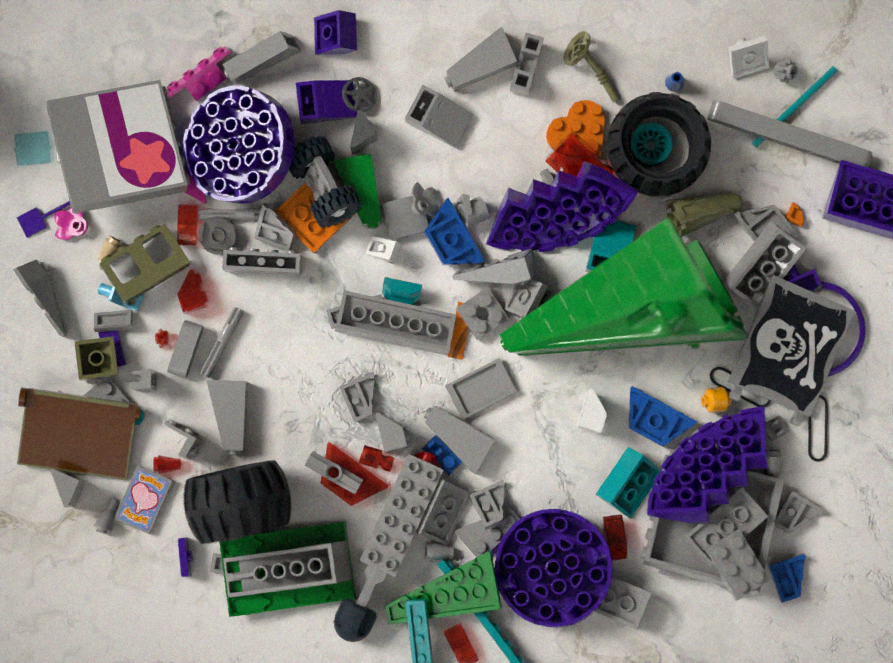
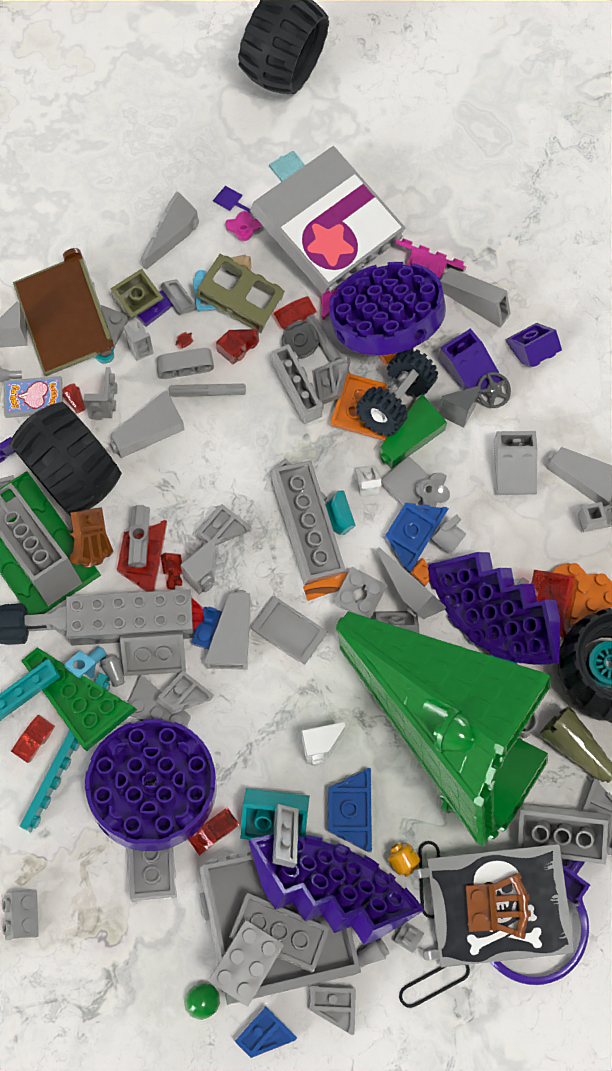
camera: 60 degrees right, 15 degrees down
(315, 515) = (89, 538): none -> dark orange plate
(421, 571) = (85, 663): none -> medium azure bracket
(490, 252) = (420, 572): none -> orange tile
(657, 483) = (285, 836): none -> light grey plate
(738, 612) = (202, 1001): none -> green hair
(786, 360) = (483, 907): none -> dark orange plate

